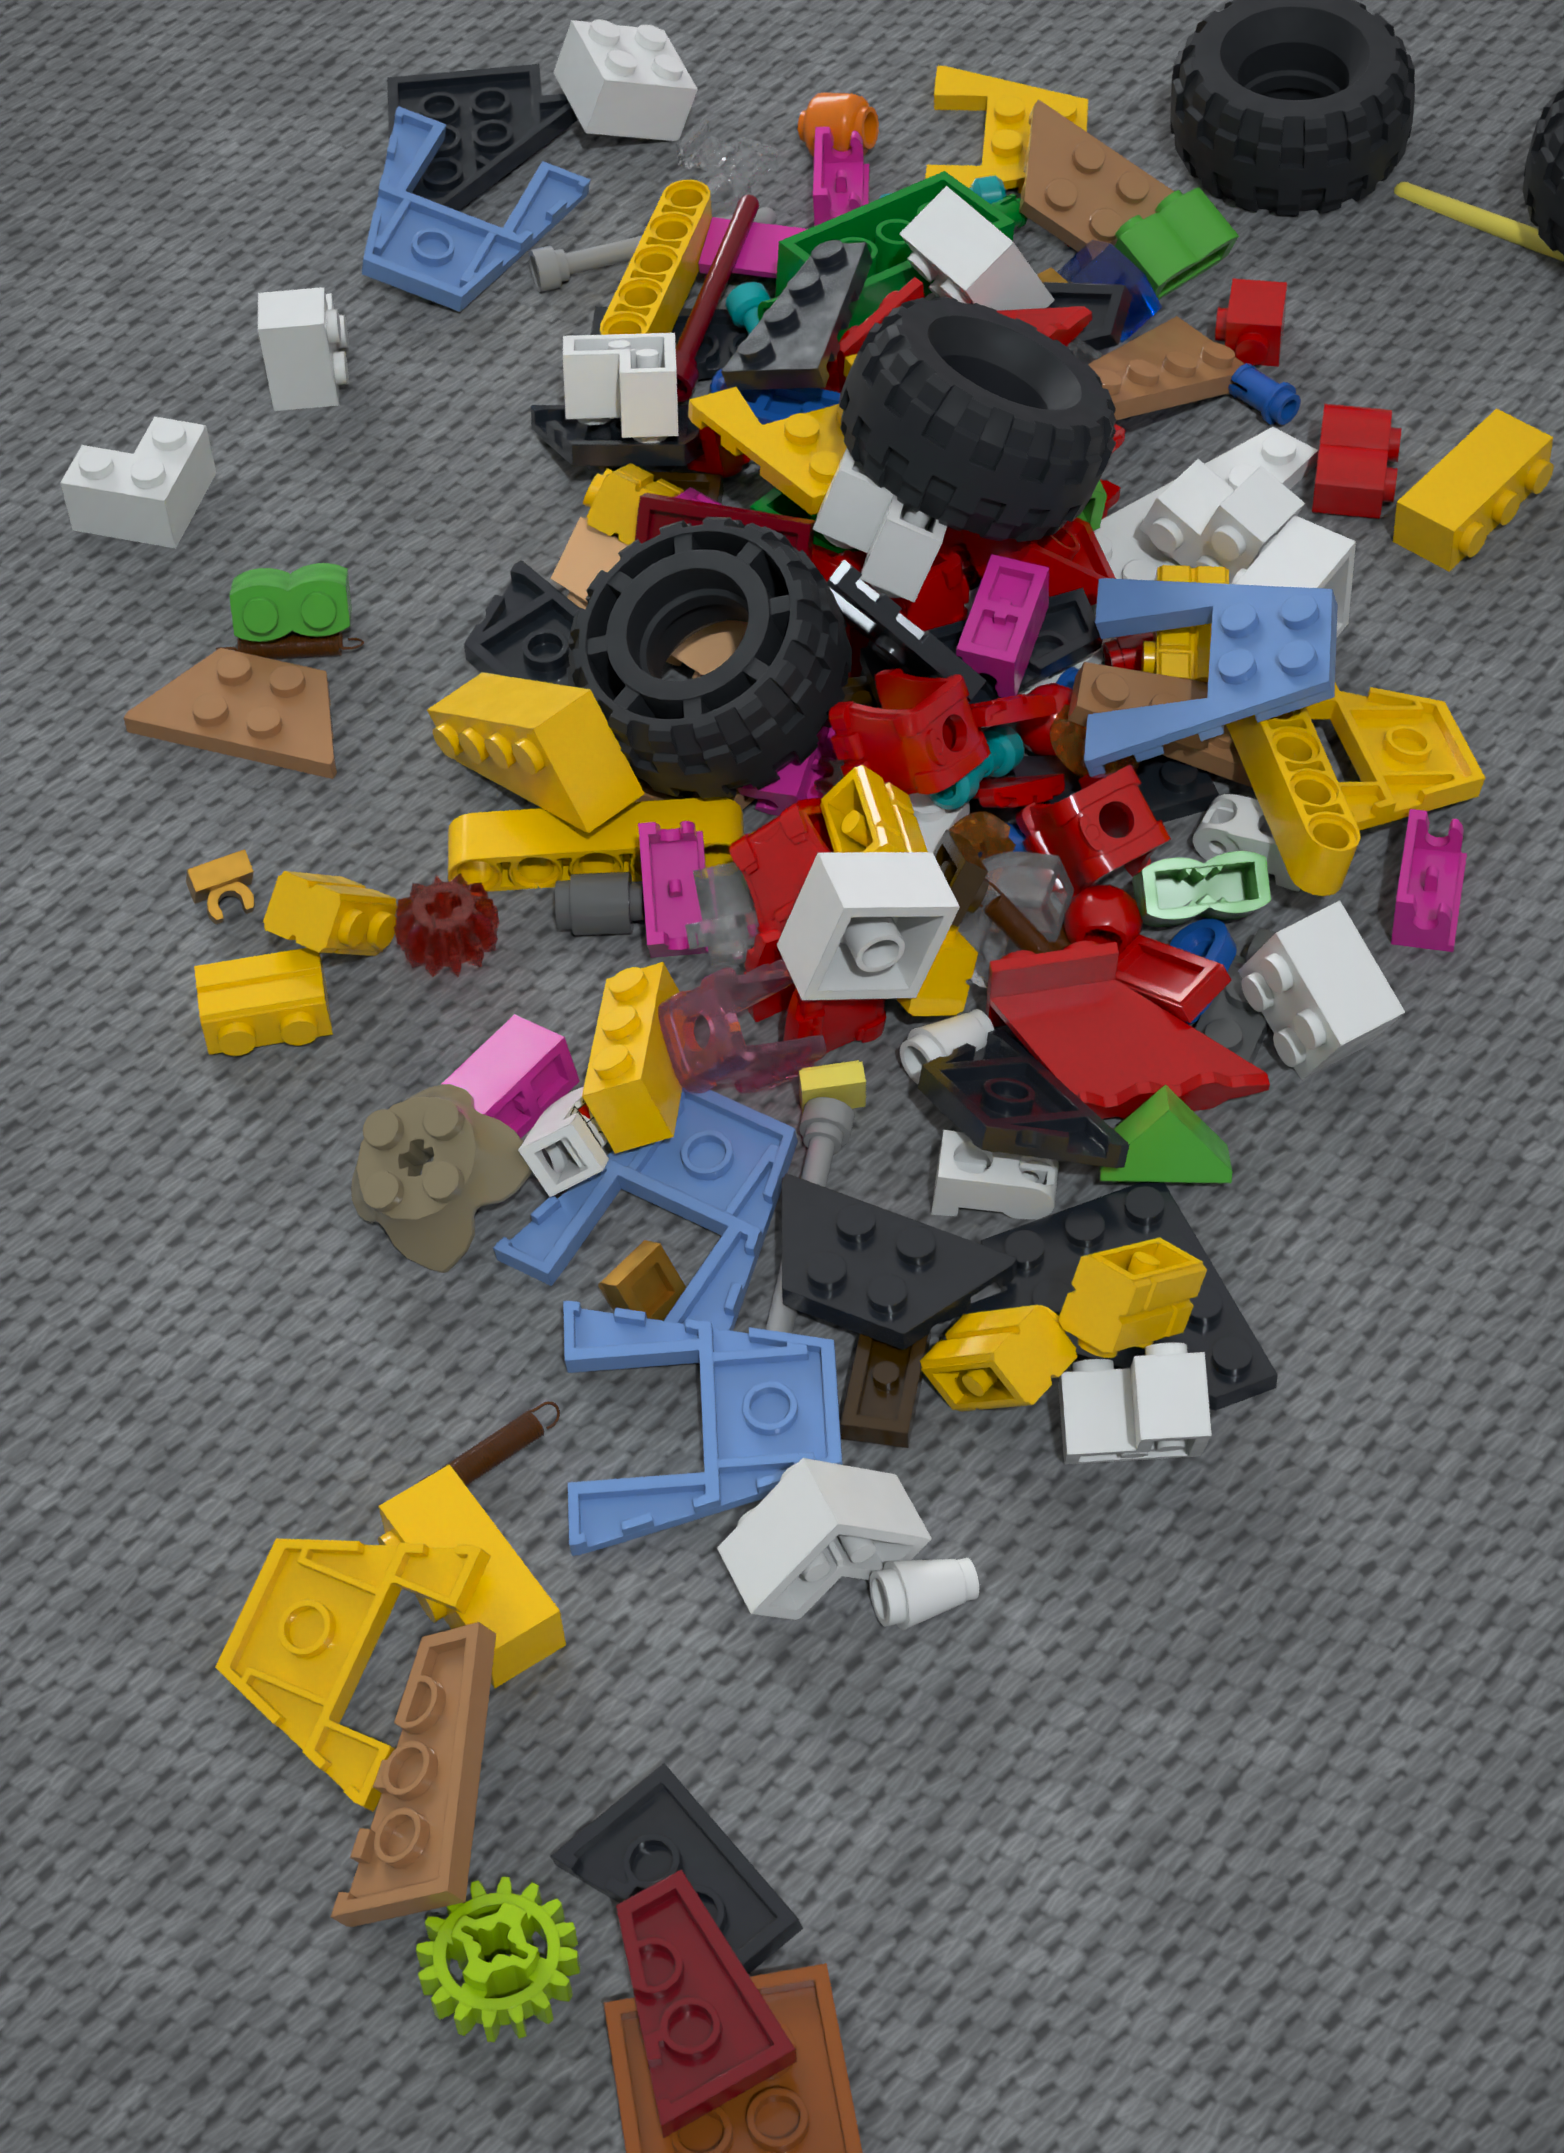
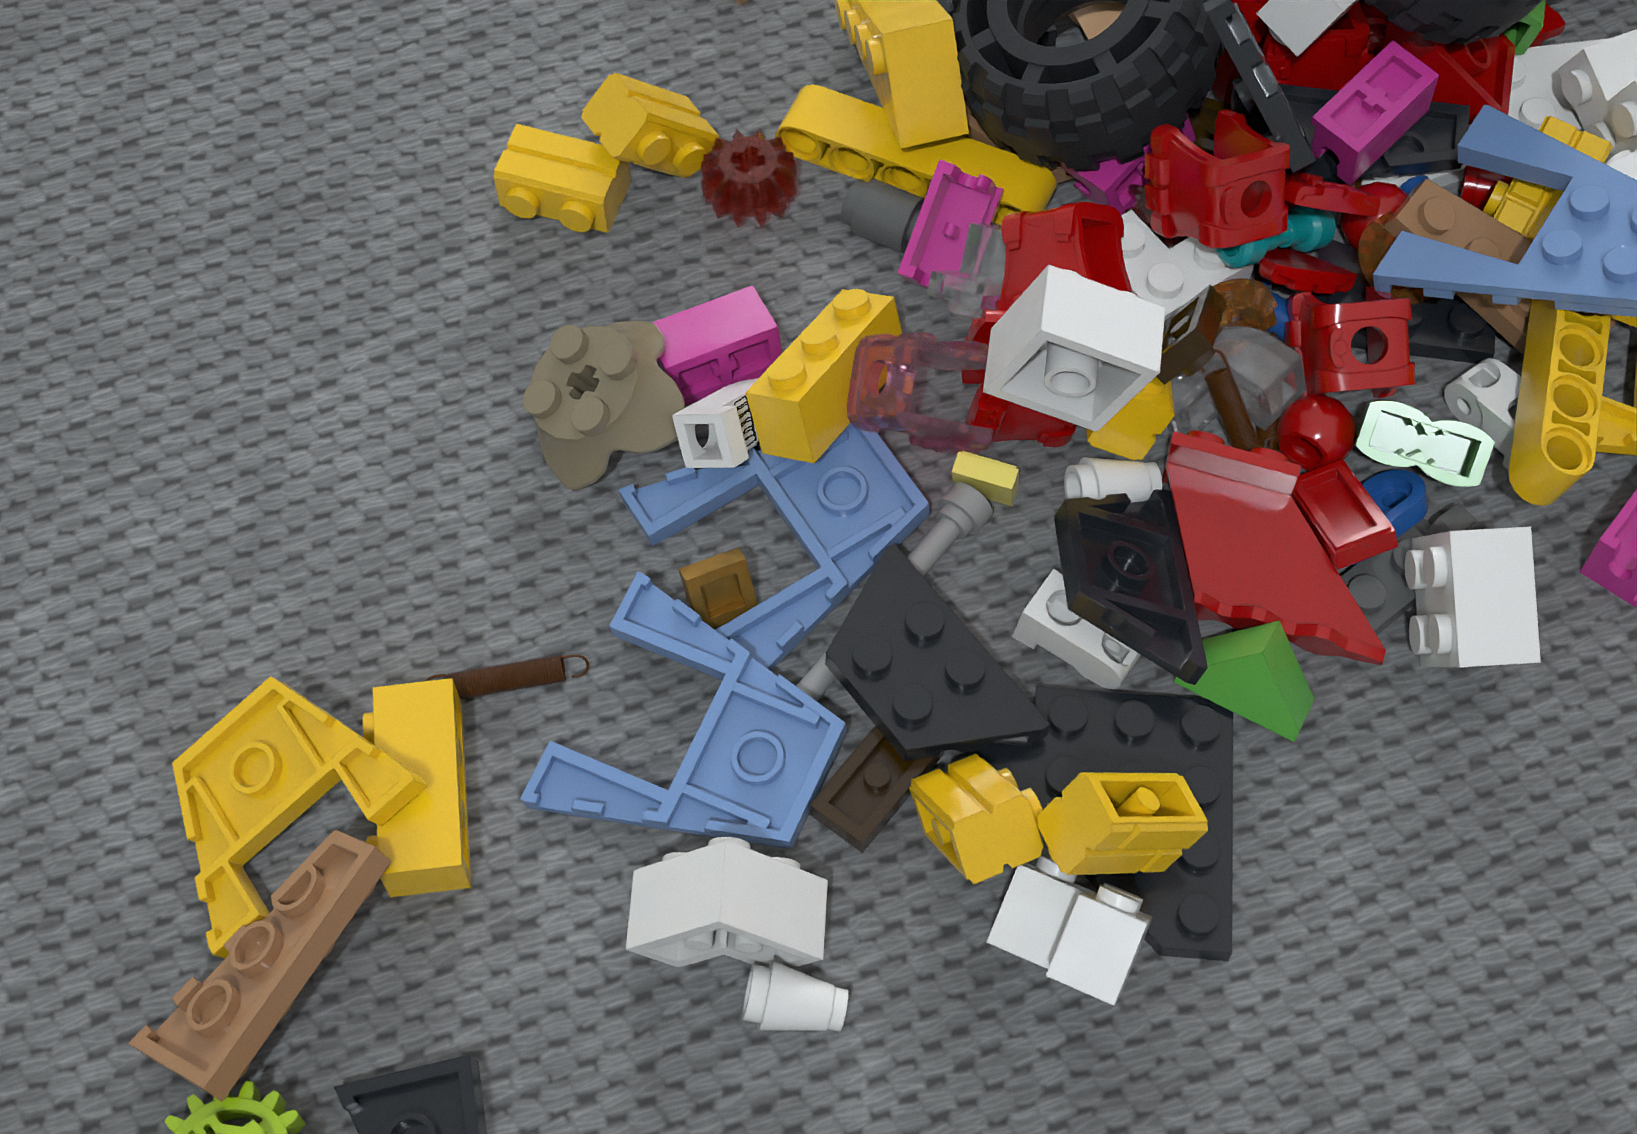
camera: 25 degrees right, 10 degrees up
(219, 879) = (590, 55): pearl gold tile -> none
(870, 815) = (1140, 251): yellow brick -> none

